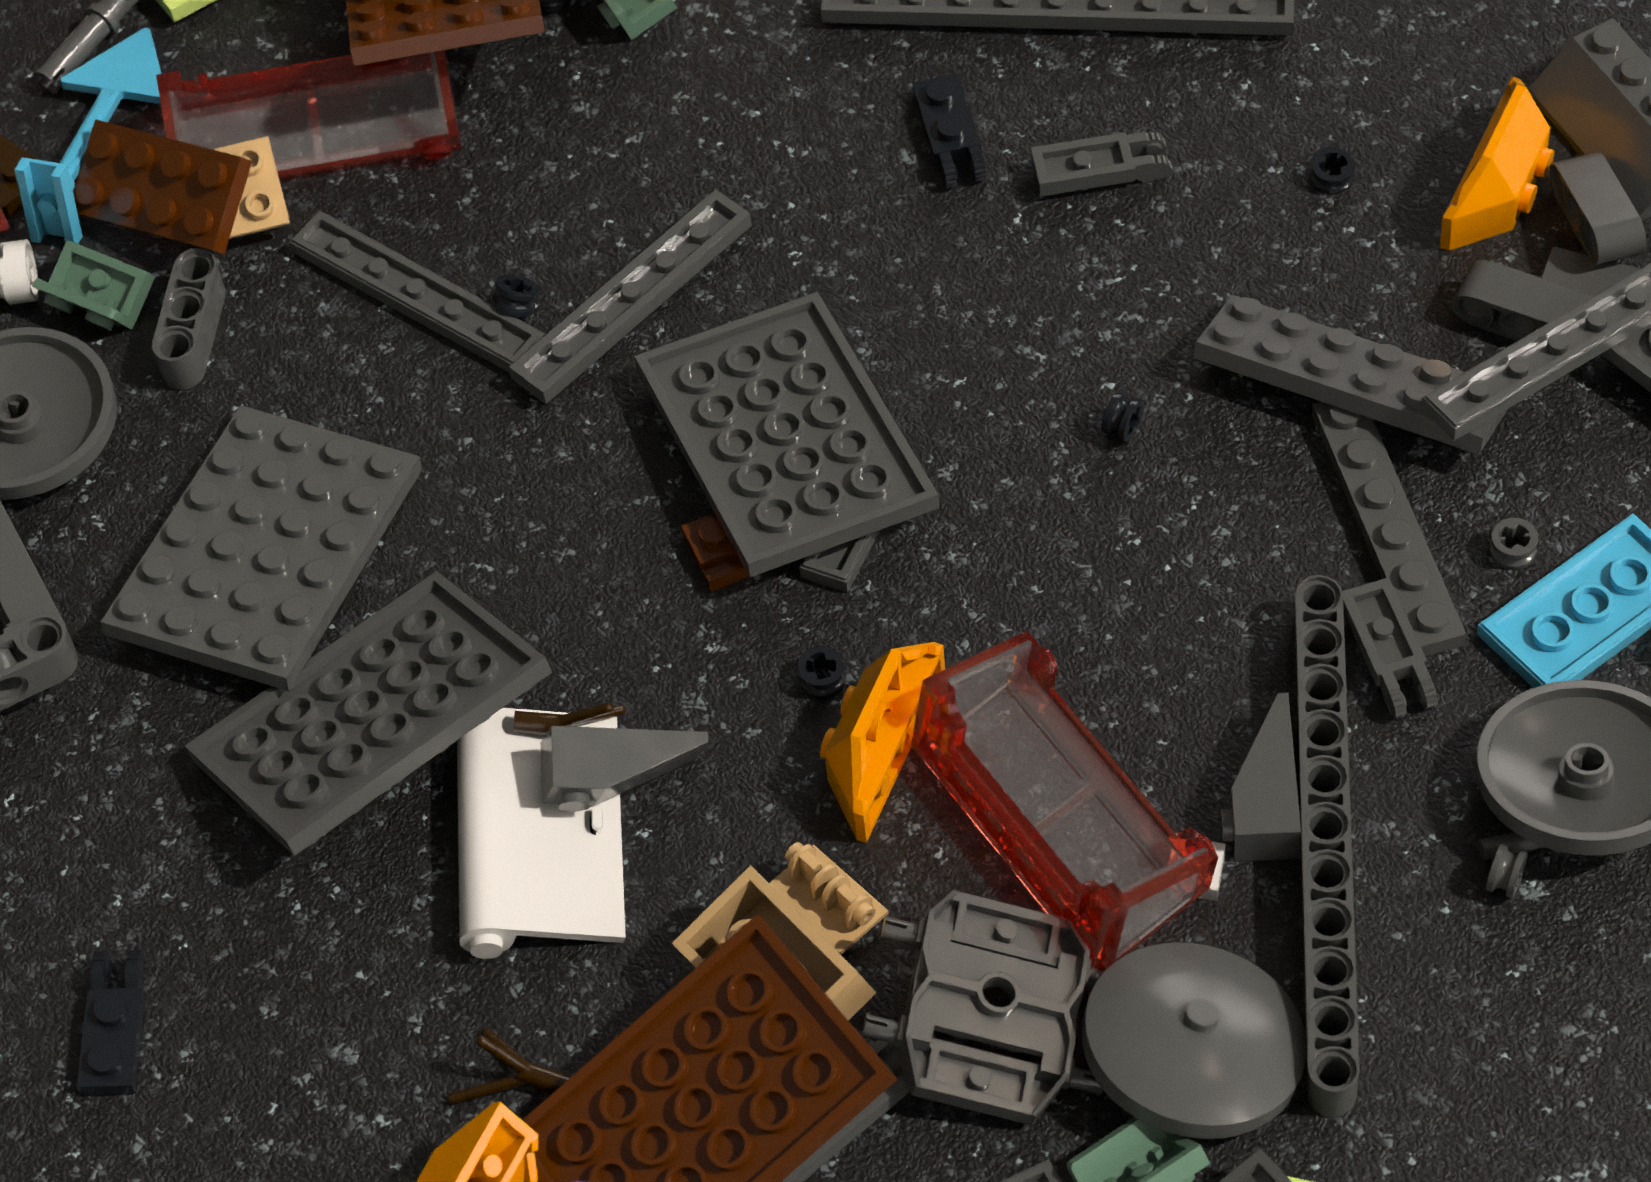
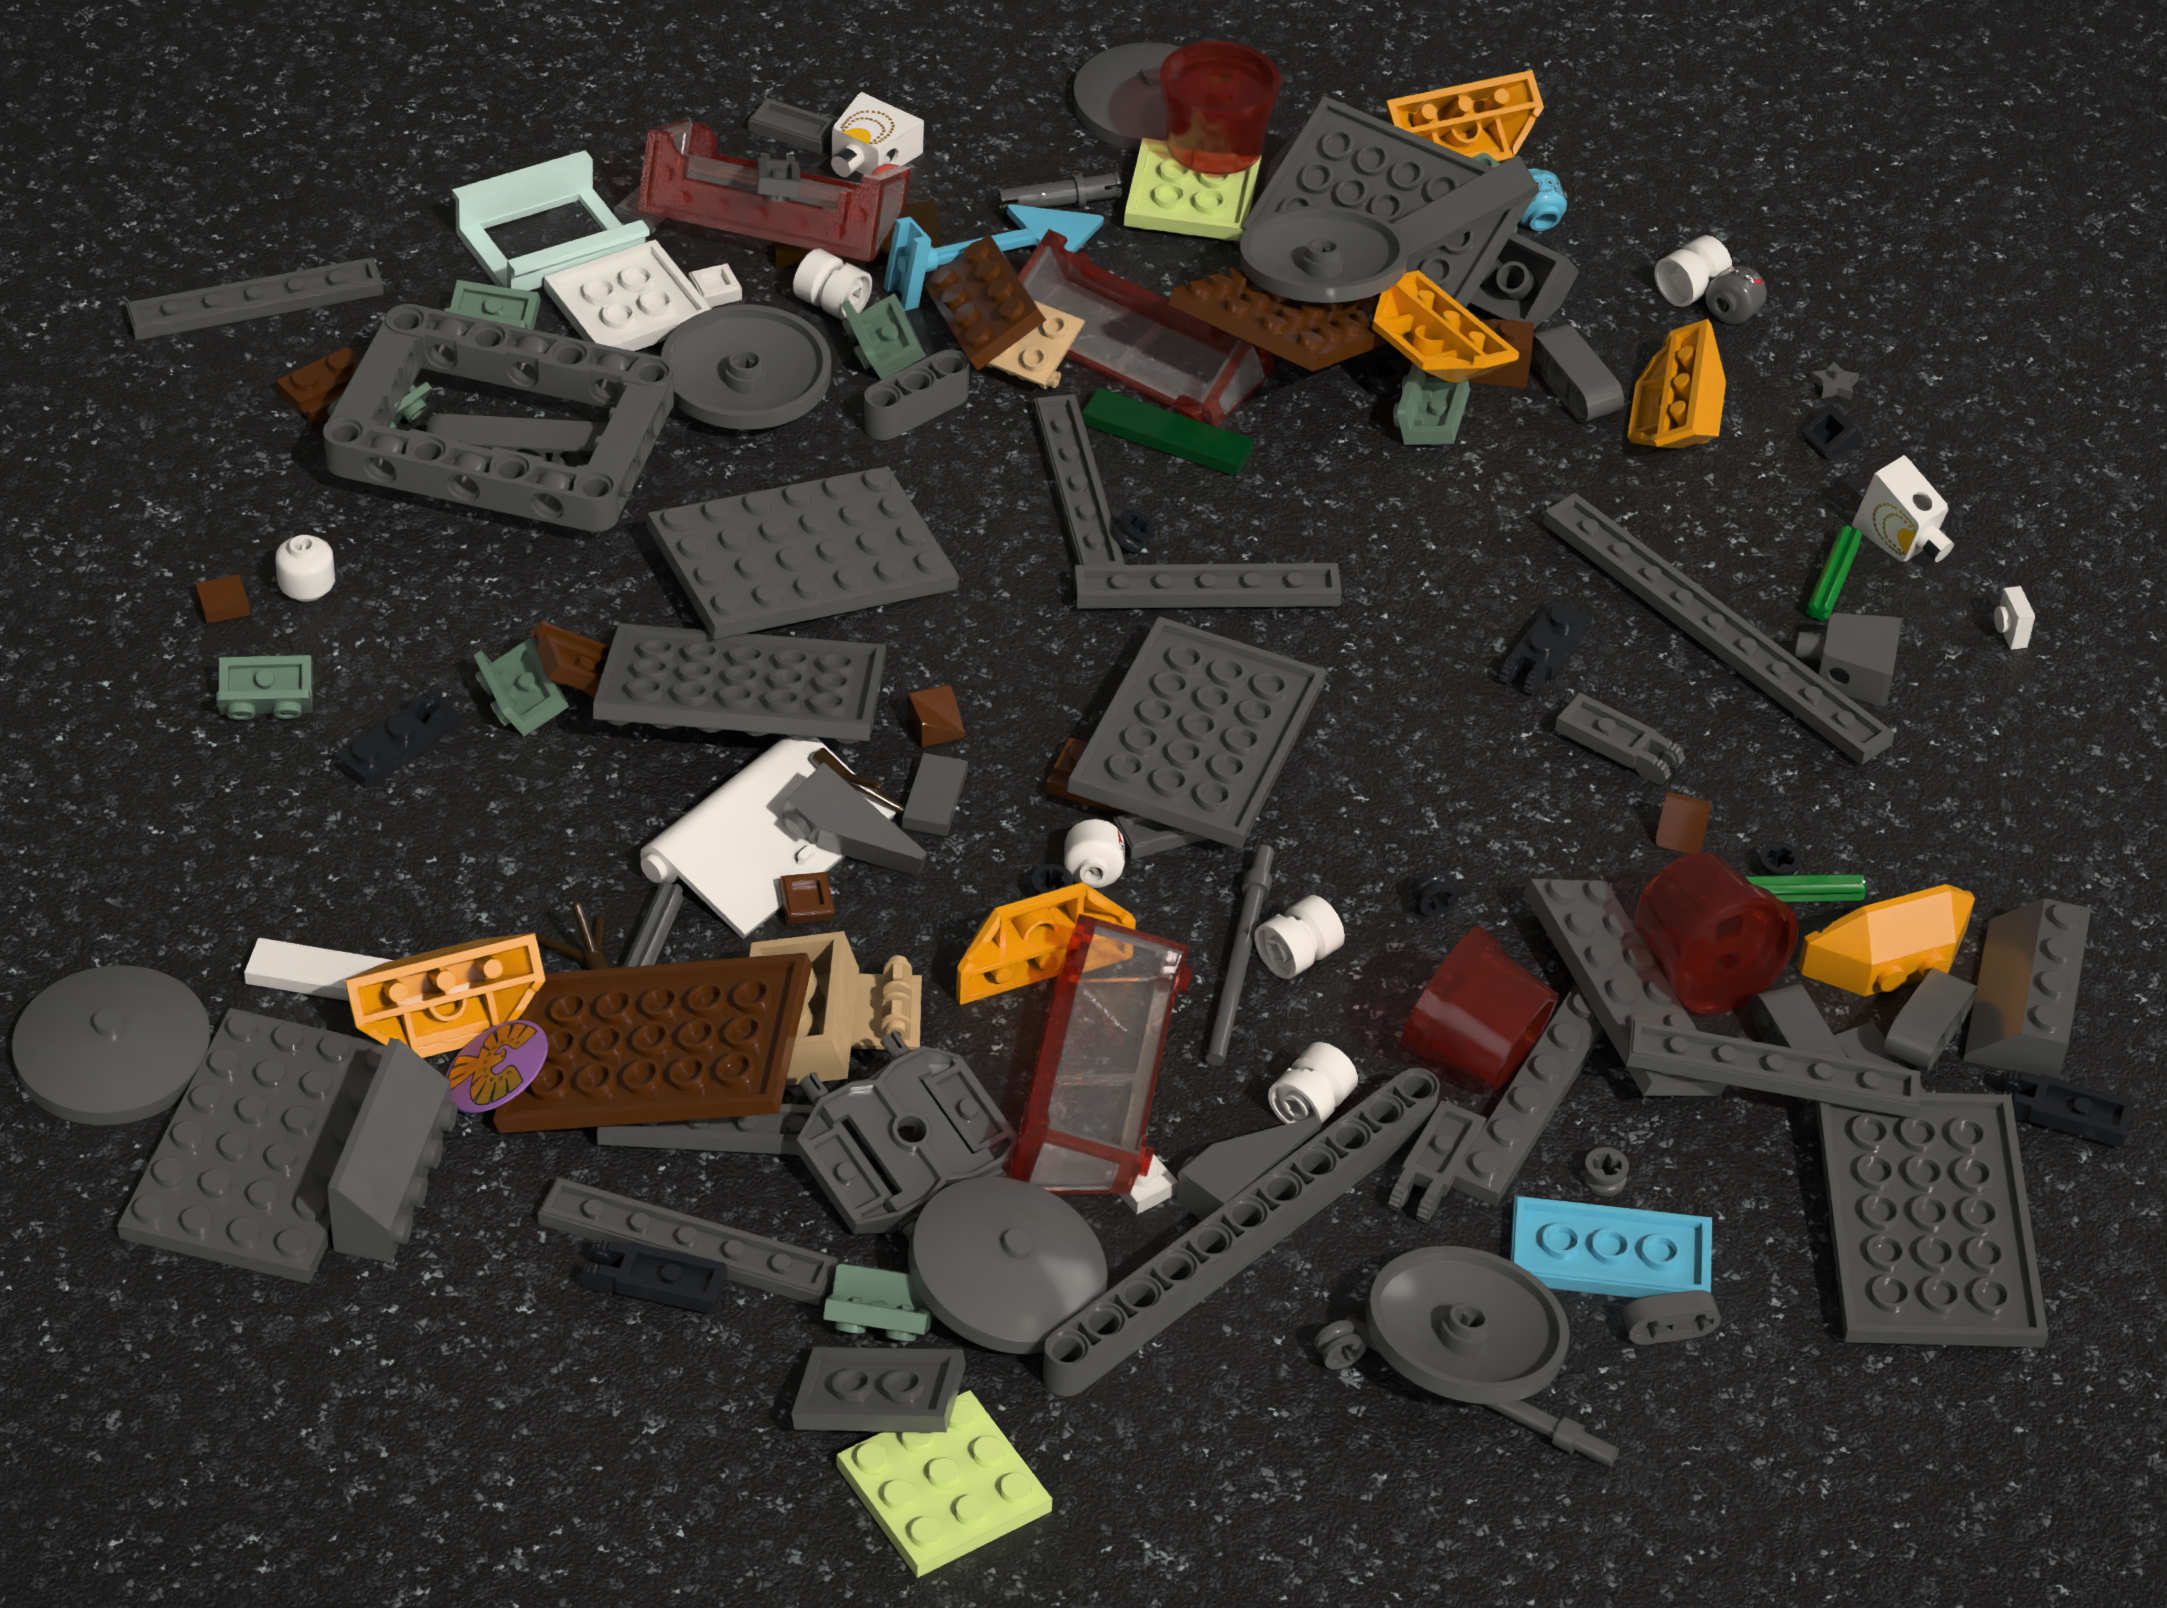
camera: 35 degrees right, 10 degrees down
(172, 876) = (520, 687): none -> sand green bracket
(196, 814) = (570, 657): none -> reddish brown plate
(432, 182) = (1167, 432): none -> dark green tile
(550, 602) = (935, 715): none -> reddish brown slope
(550, 1007) = (655, 925): none -> dark grey axle
(630, 672) = (935, 794): none -> dark grey tile
(640, 859) = (806, 898): none -> reddish brown tile
(826, 612) = (1094, 849): none -> white head
(981, 532) = (1255, 889): none -> dark grey bar
(1072, 546) = (1300, 937): none -> white wheel
(1231, 197) = (1683, 823): none -> reddish brown slope
(1236, 668) = (1313, 1085): none -> white wheel
(1301, 490) = (1480, 1012): none -> clear red piece
(1369, 180) = (1813, 887): none -> green axle
(1382, 269) = (1715, 932): none -> clear red piece

